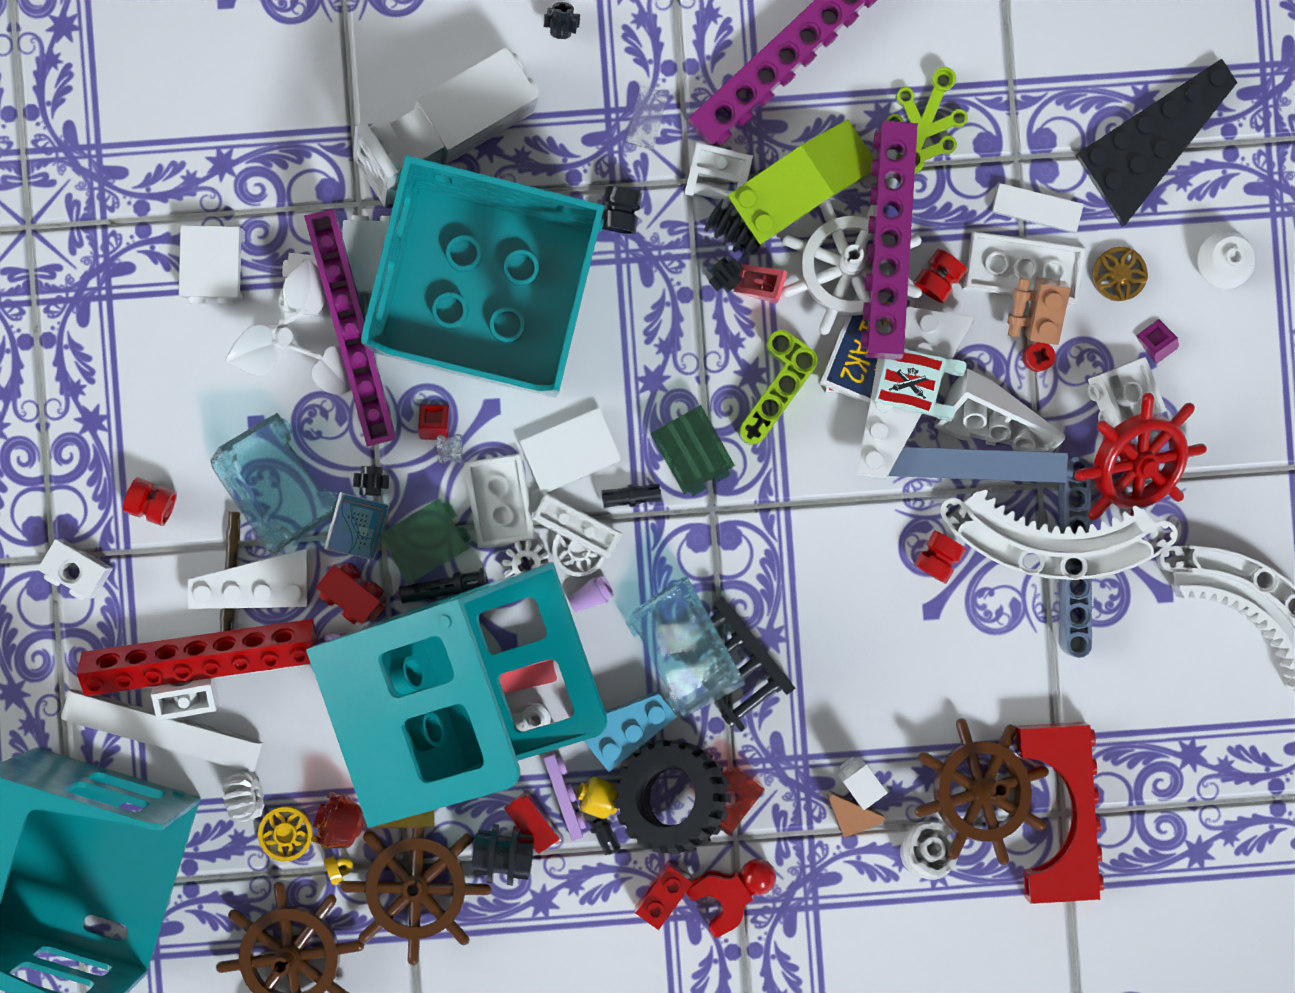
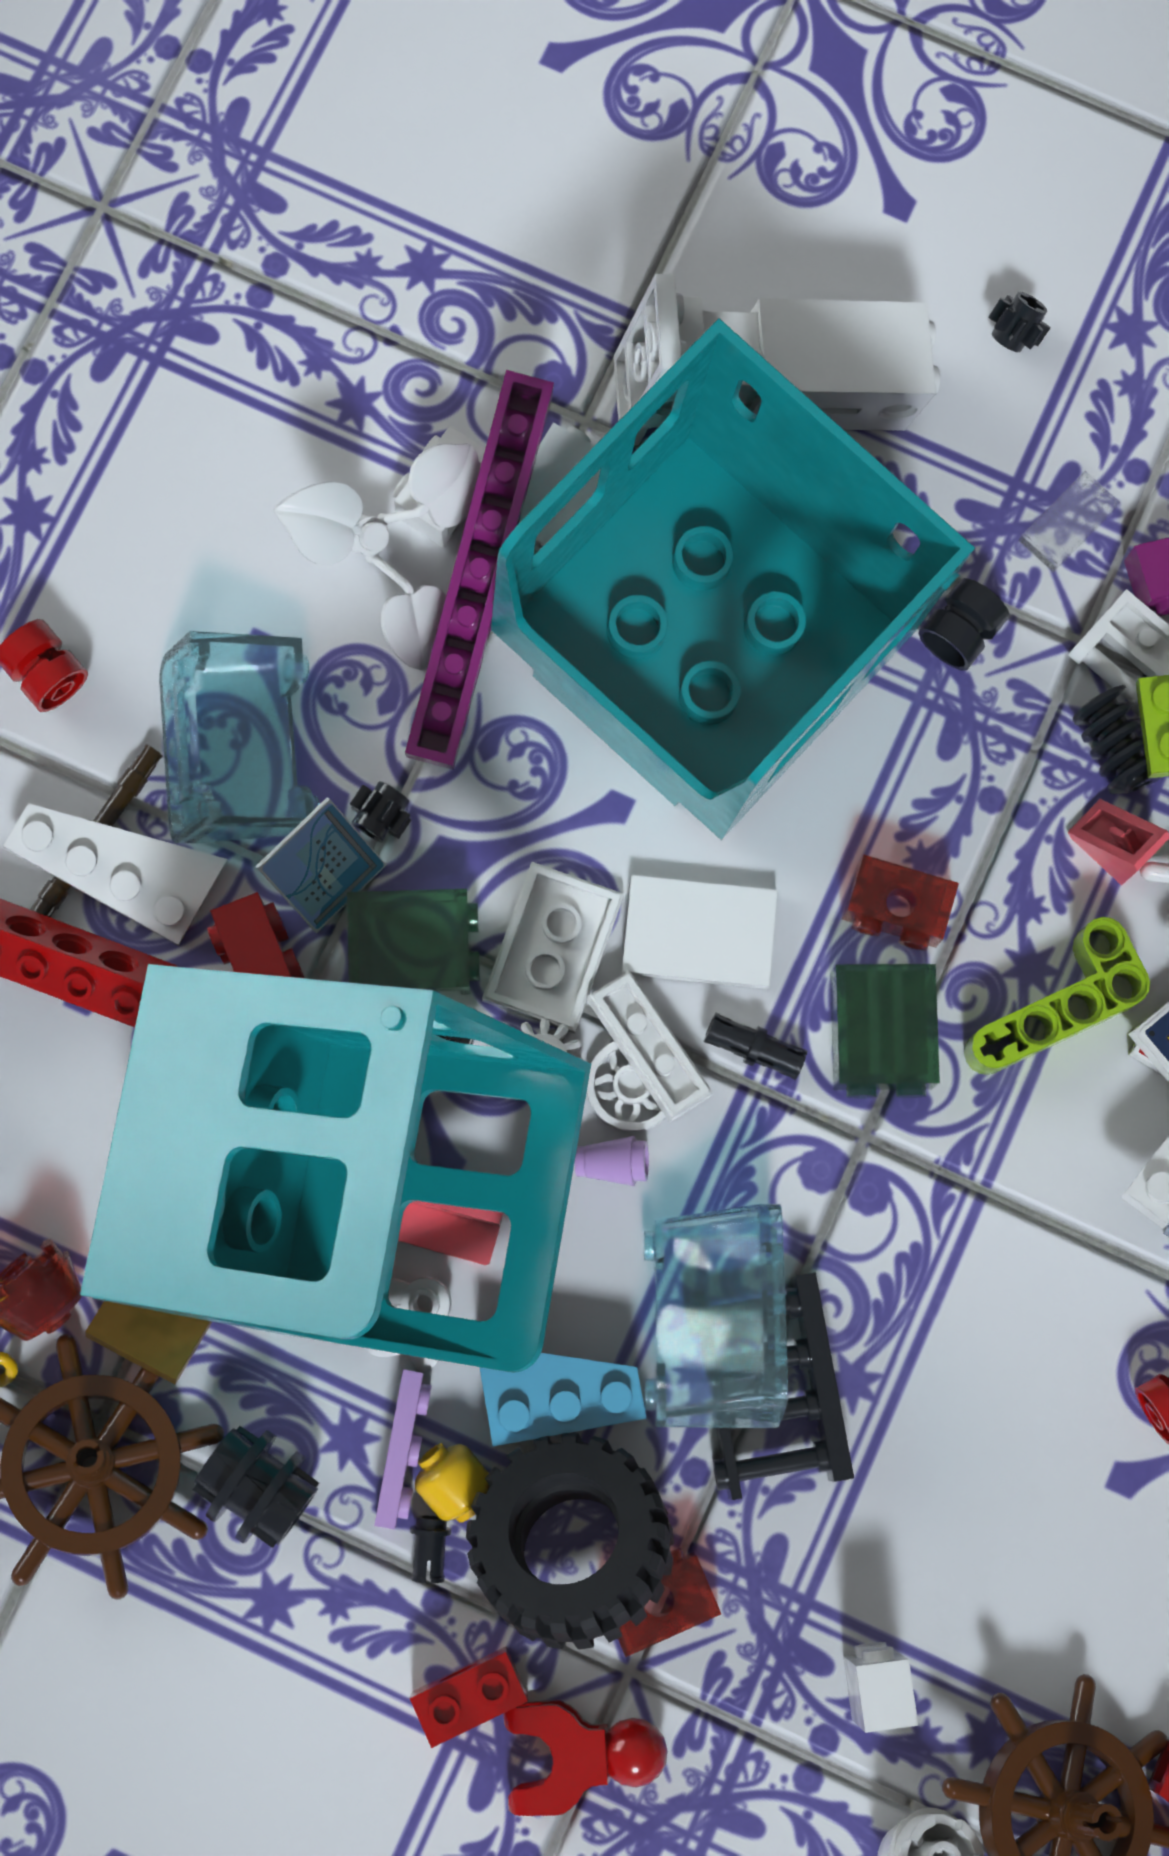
camera: 25 degrees right, 10 degrees down
(210, 263) = (328, 385): white panel -> none
(433, 421) = (519, 781): red slope -> none
(450, 448) = (522, 829): clear wheel -> none
(533, 821) = (331, 1461): red panel -> none
(679, 368) = (927, 895): none -> clear red brick
(725, 275) = (1070, 799): black gear -> none
(851, 816) = (833, 1737): nougat slope -> none

